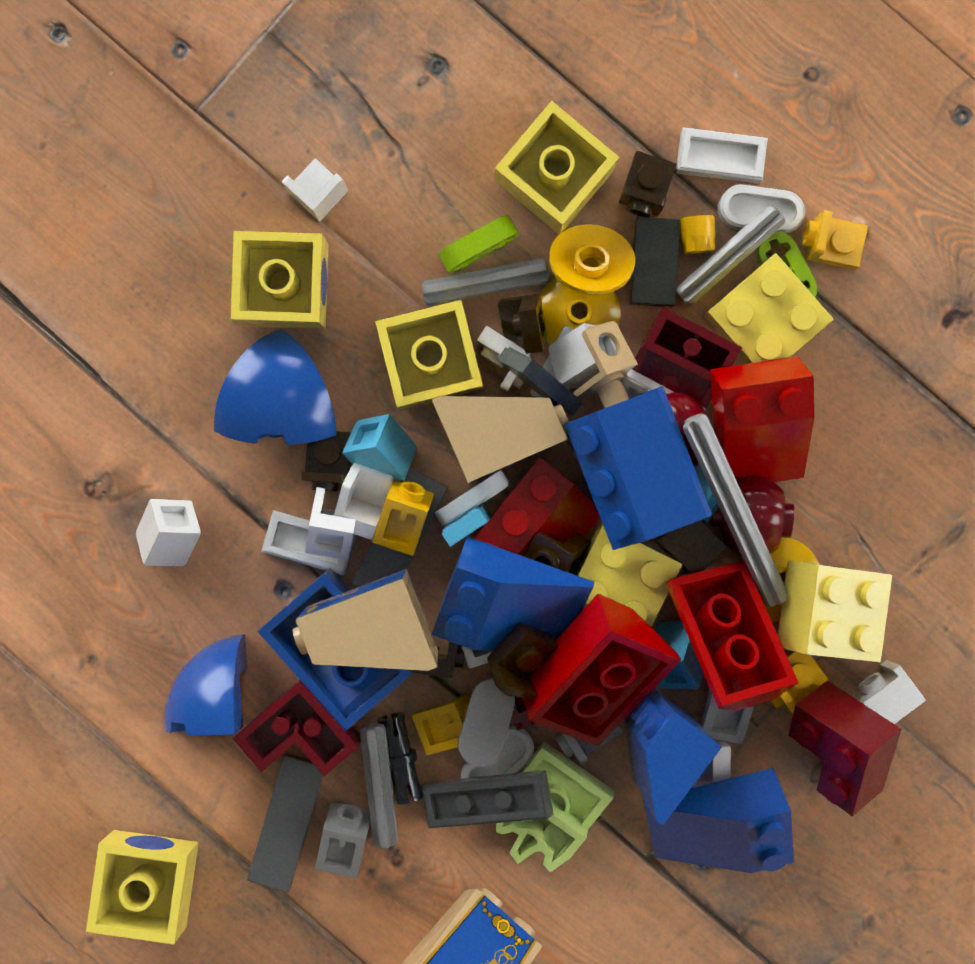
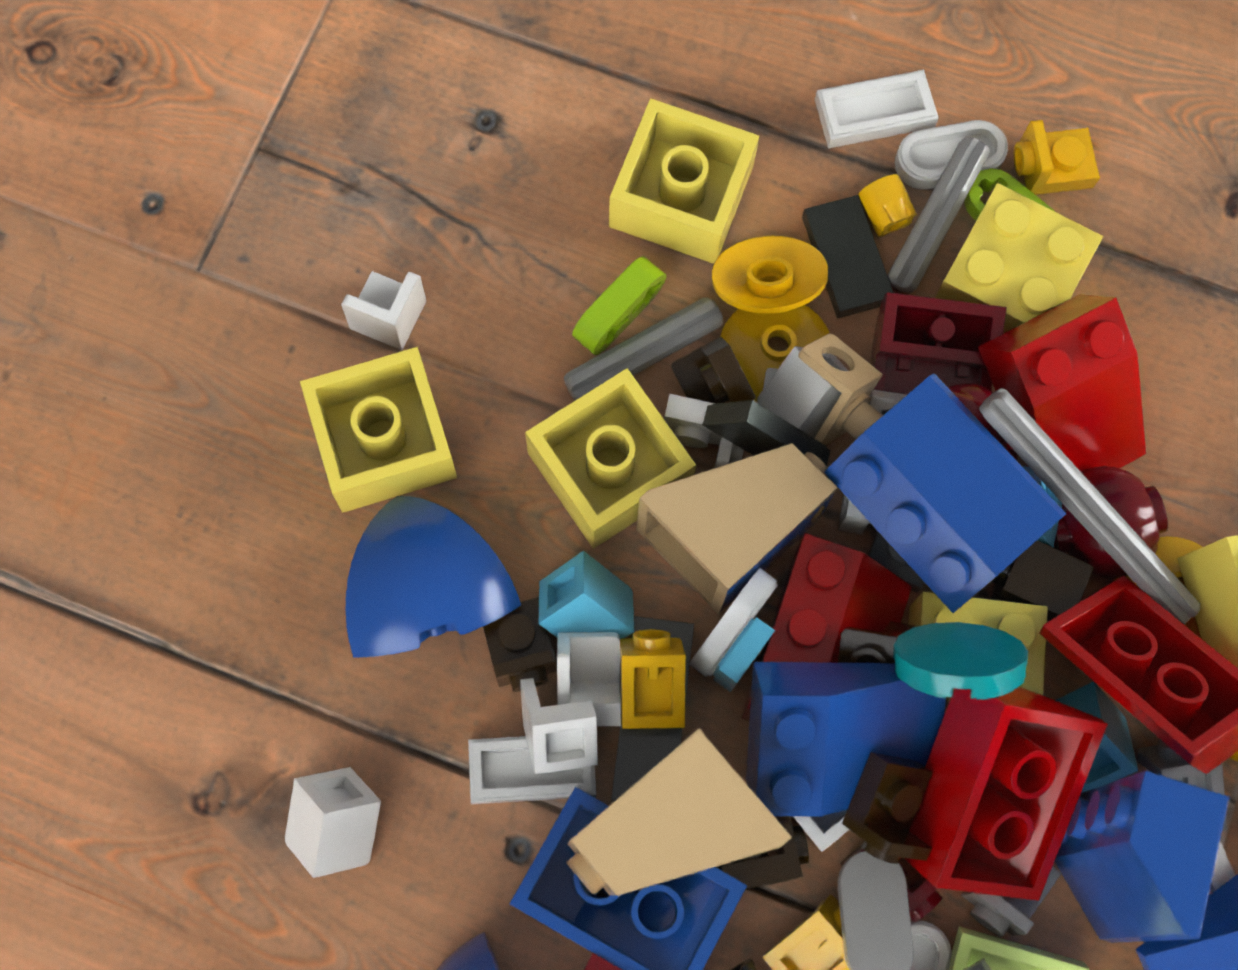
camera: 20 degrees left, 15 degrees down
(600, 586) = (960, 657): none -> teal tile
(647, 185) = (800, 169): dark brown bracket -> none

